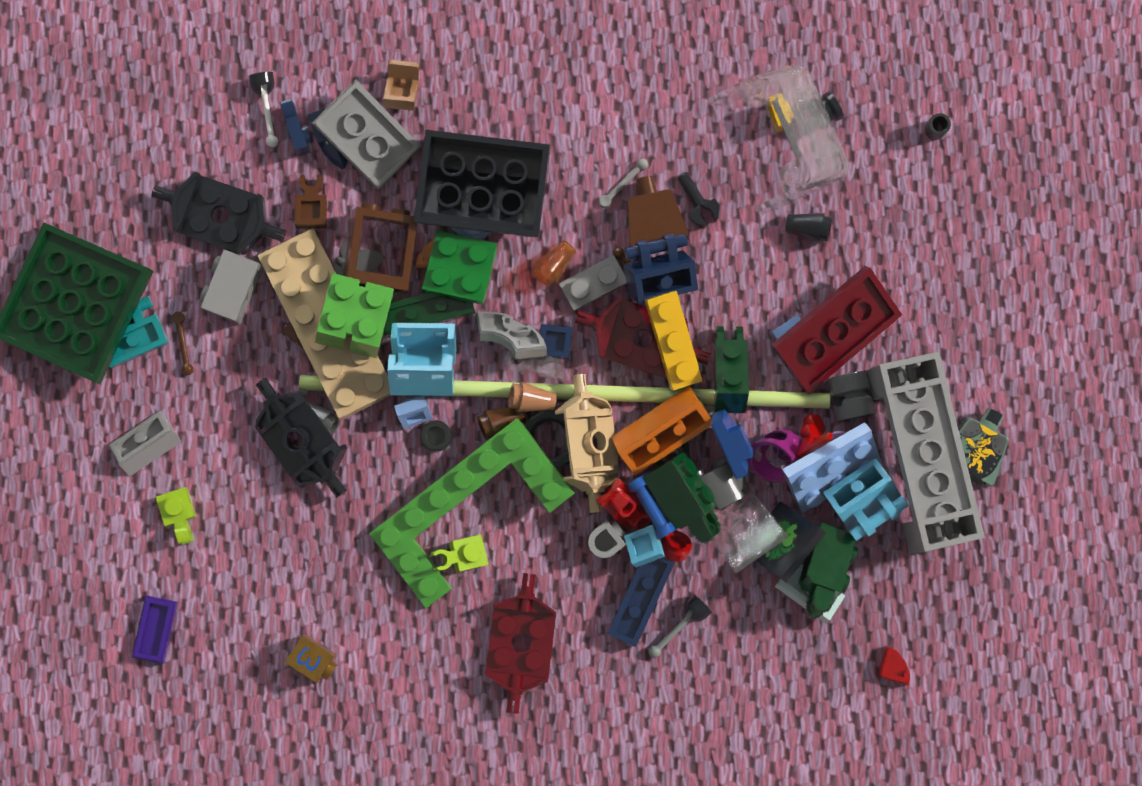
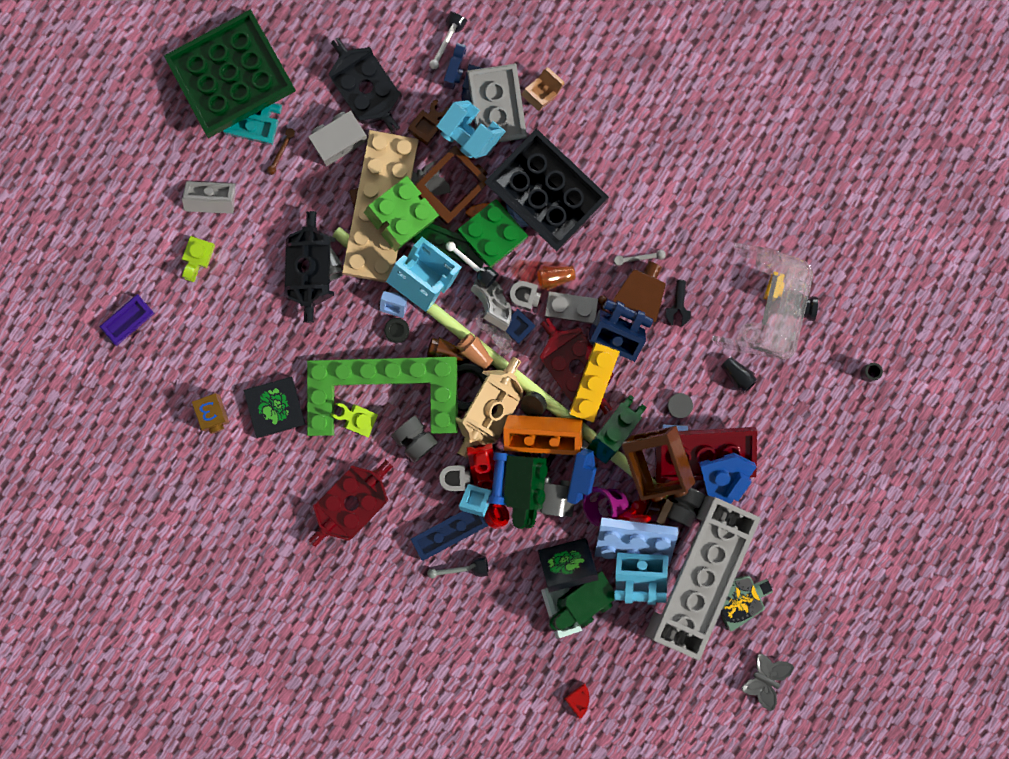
camera: 35 degrees right, 0 degrees up
(345, 188) = (456, 126): none -> medium azure piece
(371, 605) = (274, 407): none -> black tile
(484, 314) = (485, 275): none -> hinge
(536, 531) = (414, 439): none -> dark grey wheel
(538, 305) = (524, 295): none -> light grey plate
(628, 407) = (533, 404): none -> pearl dark grey tile
(746, 532) = (548, 541): clear tile -> none
(774, 300) = (680, 405): none -> dark grey tile
(806, 408) = (633, 451): none -> reddish brown window
(831, 419) = (658, 511): none -> dark brown tile
(875, 335) = (727, 476): none -> blue plate
(1060, 509) = (765, 679): none -> dark grey piece

